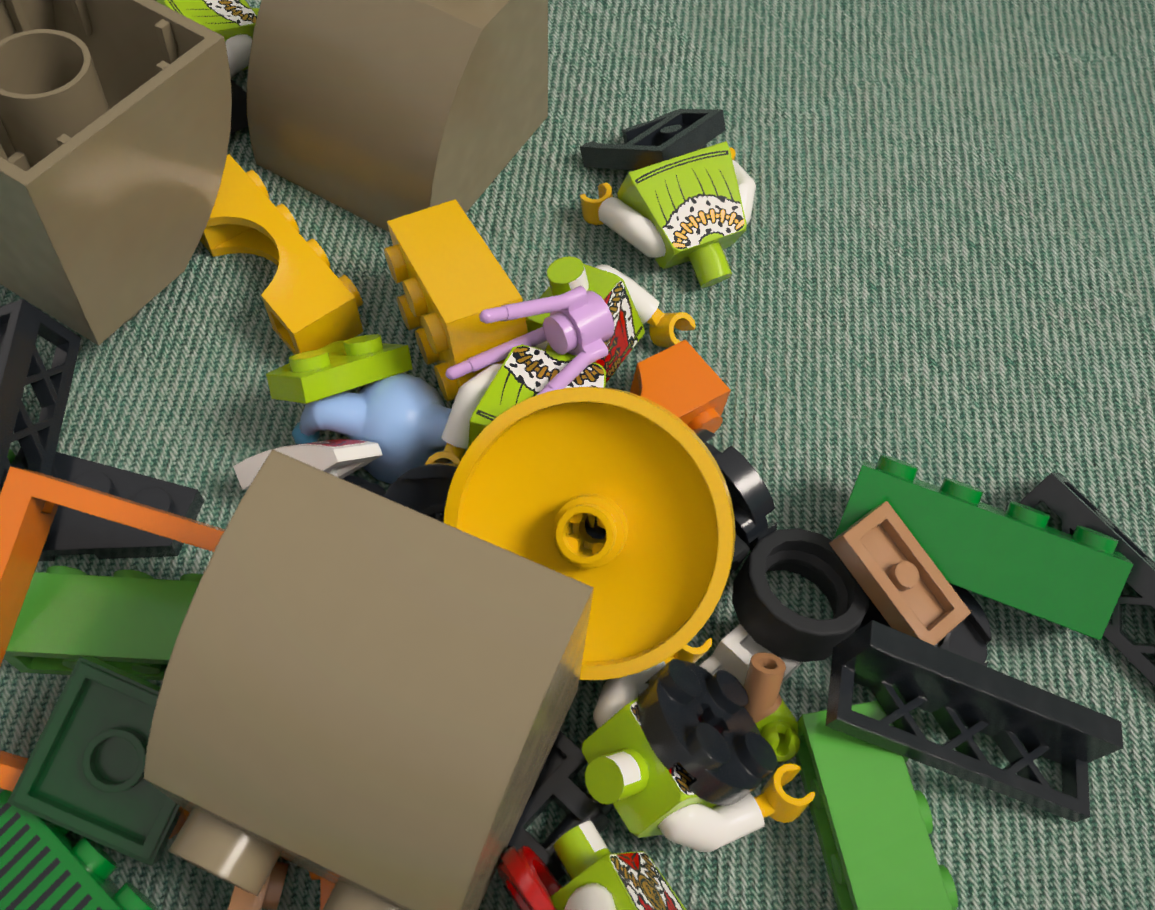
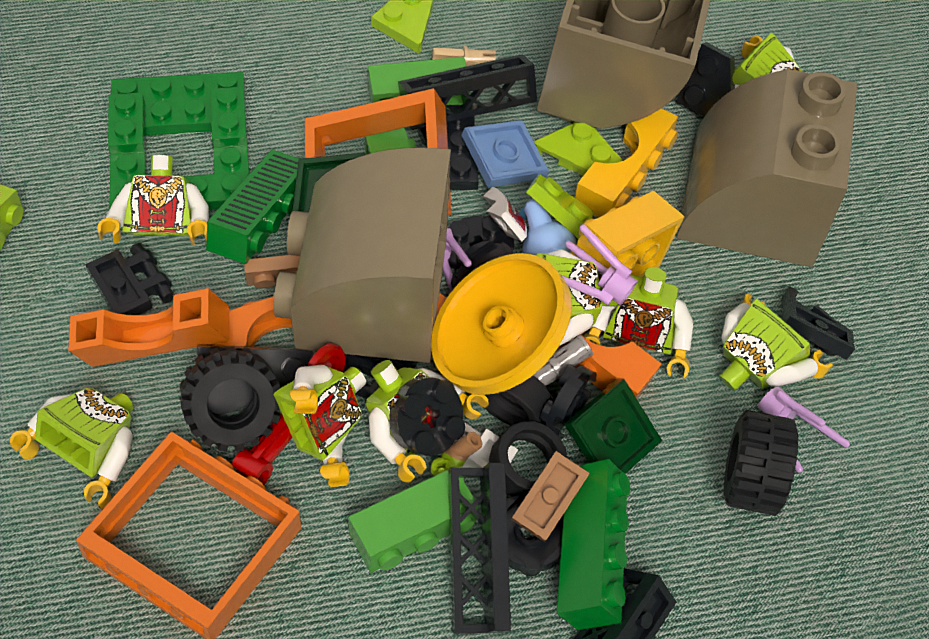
camera: 70 degrees right, 5 degrees down
(159, 428) = (504, 153): none -> medium blue tile
(205, 318) = (577, 147): none -> lime wing
(781, 448) = (614, 428): none -> dark green tile
(782, 230) = (781, 404): none -> lavender plant
(898, 273) = (761, 462): none -> black tyre

